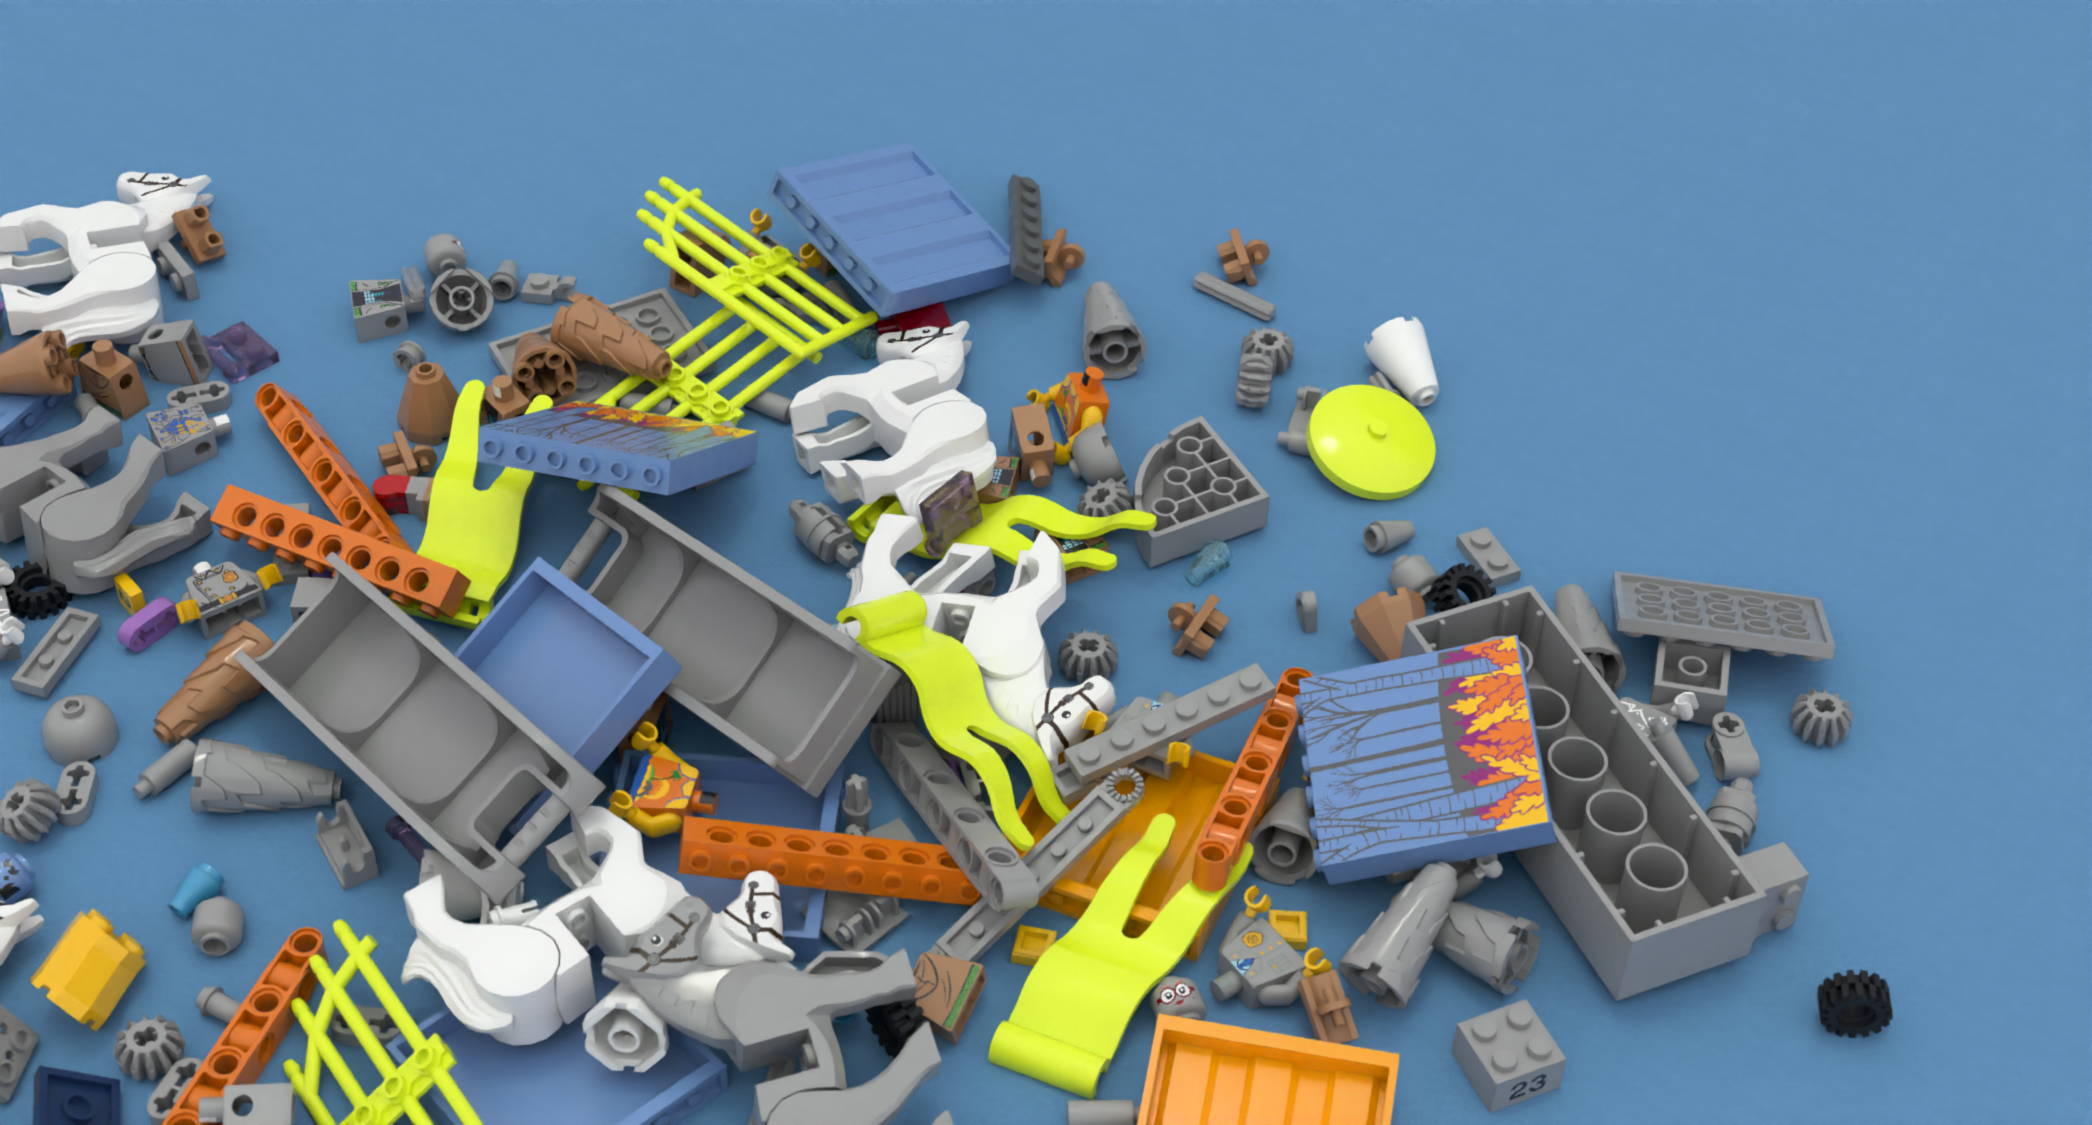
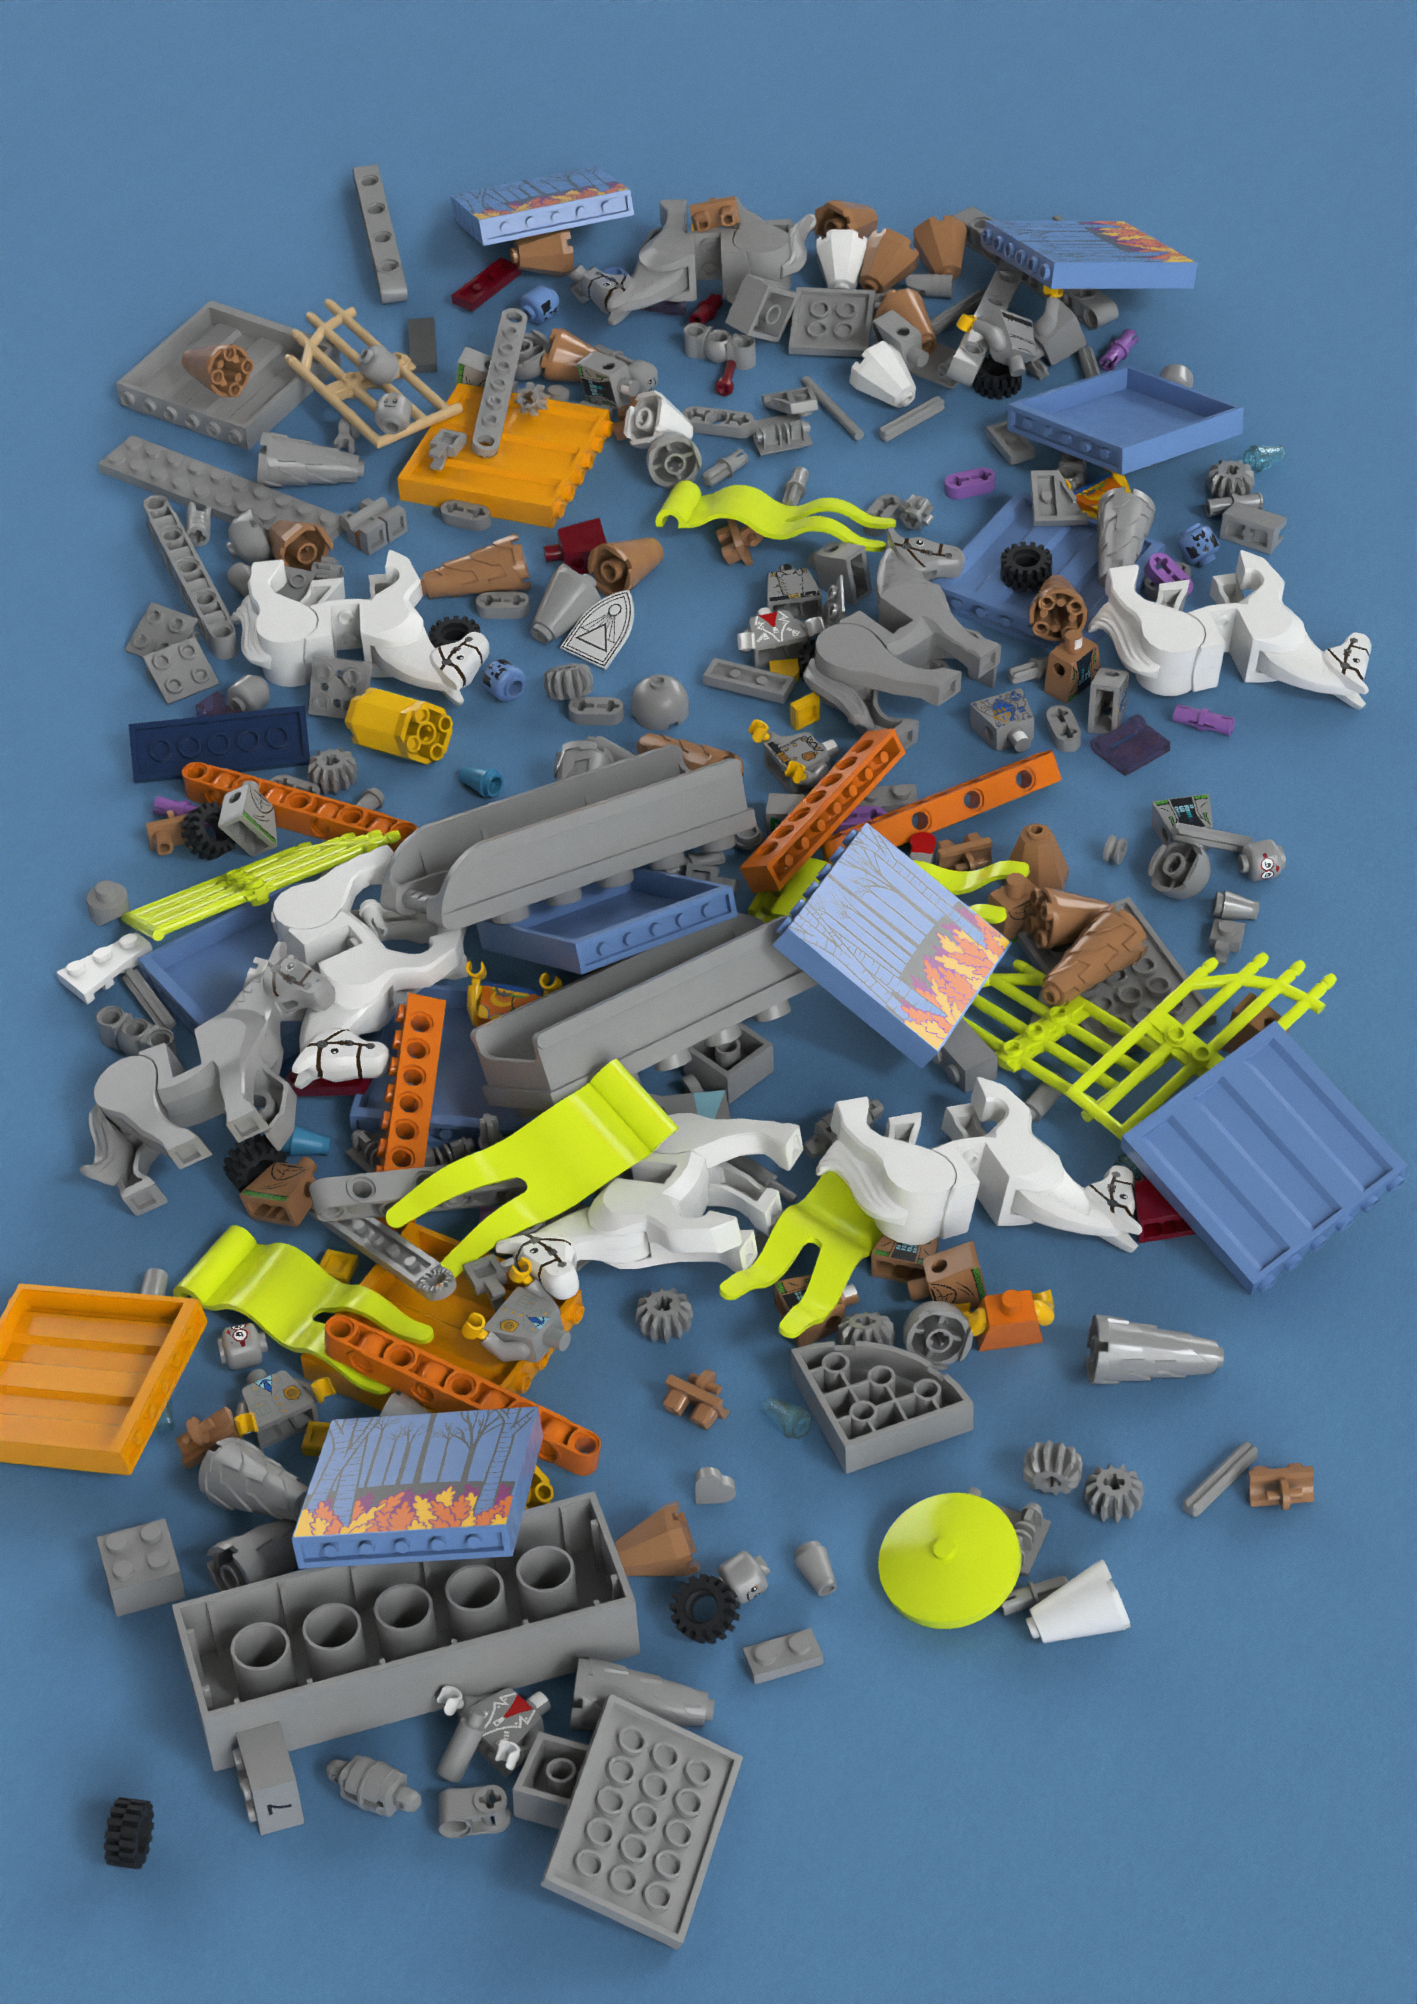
camera: 100 degrees right, 0 degrees up
(38, 624) = (786, 667): none -> yellow tile
(148, 624) = (776, 722): medium lavender beam -> none
(179, 273) = (1240, 693): light grey plate -> none
(198, 234) = (1285, 697): medium nougat hips -> none
(208, 299) = (1204, 719): none -> medium lavender pin
(217, 926) = (440, 792): light grey head -> none
(945, 506) = (820, 1188): plate -> none
(1025, 230) = (1313, 1290): dark grey plate -> none
(1060, 257) = (1276, 1324): medium nougat hips -> none
(1169, 723) = (516, 1326): light grey plate -> none
(1821, 717) = (505, 1902): light grey gear -> none

